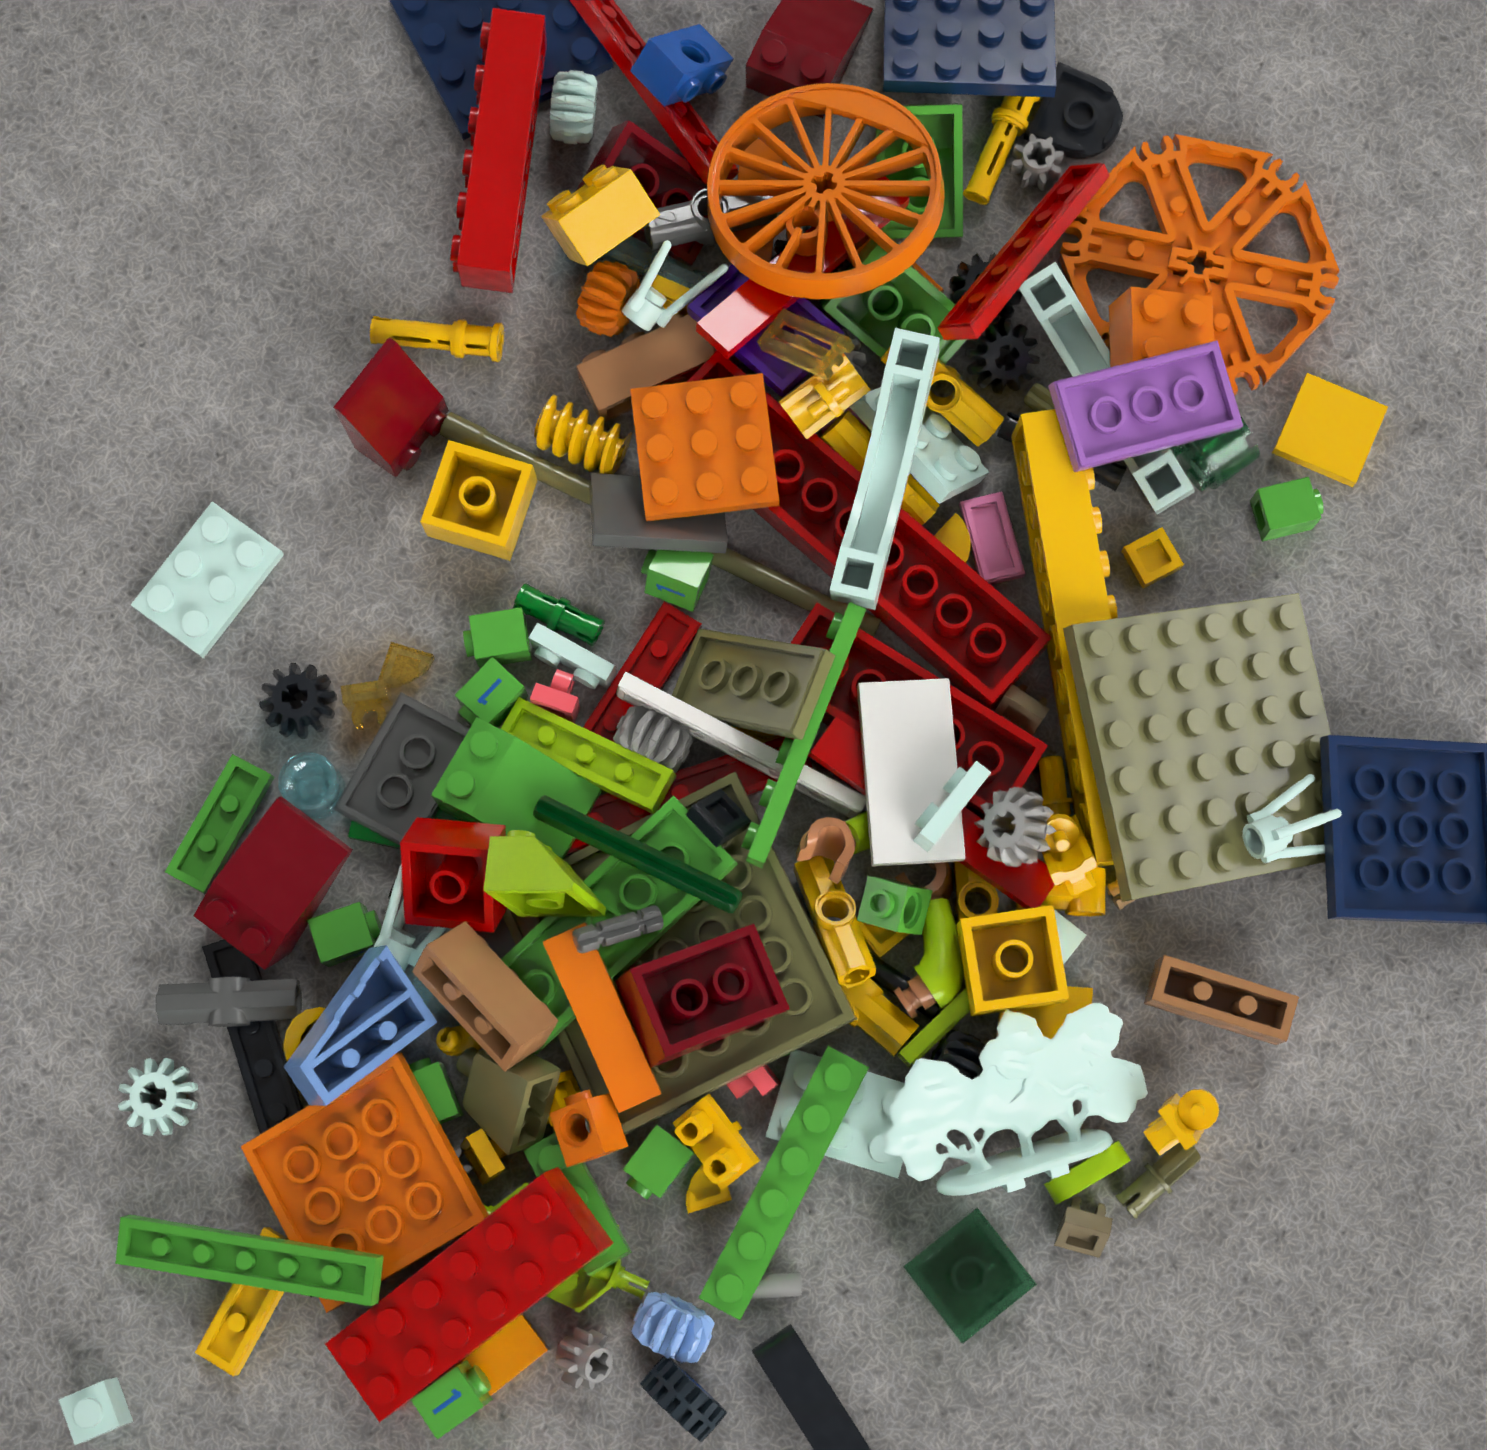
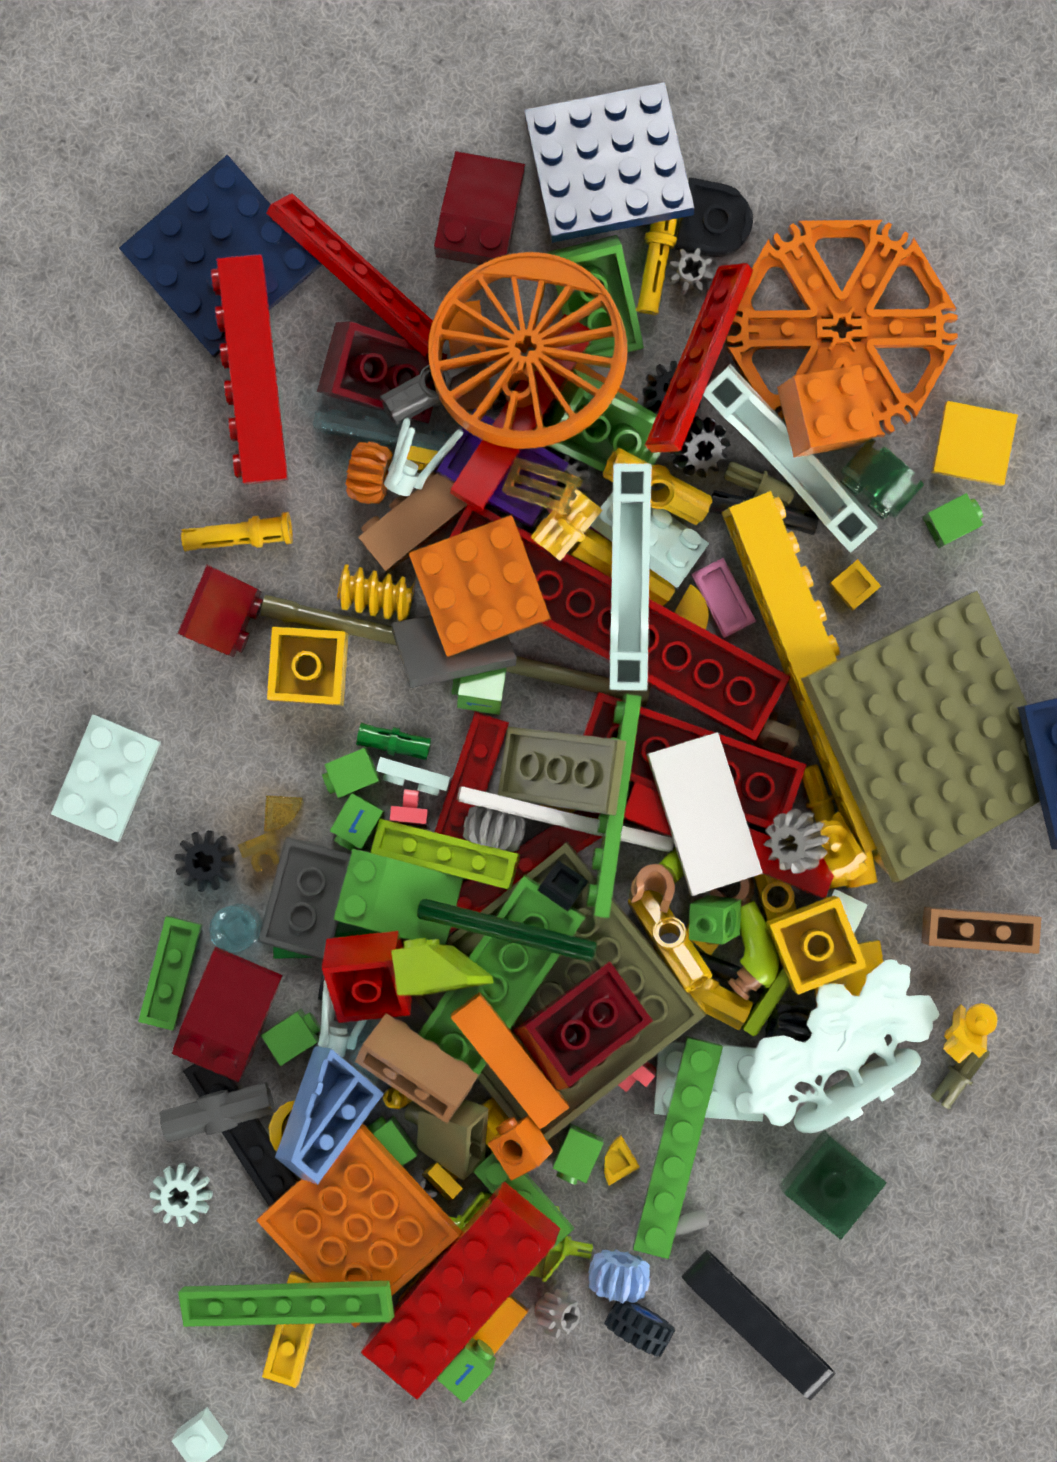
camera: 10 degrees left, 10 degrees up
(573, 107) = (299, 314): light aqua gear -> none
(599, 213) = (348, 413): yellow brick -> none
(618, 929) = (507, 994): dark grey axle -> none
(682, 65) = (381, 258): blue brick -> none
(715, 1141) = (618, 1130): yellow hips -> none
(937, 819) = (736, 851): light aqua plate -> none
(1084, 1230) = (912, 1128): dark tan tile -> none
(1087, 1172) = (909, 1086): lime beam -> none
(1145, 406) = (827, 477): medium lavender tile -> none
(1268, 835) = (996, 800): light aqua plant -> none

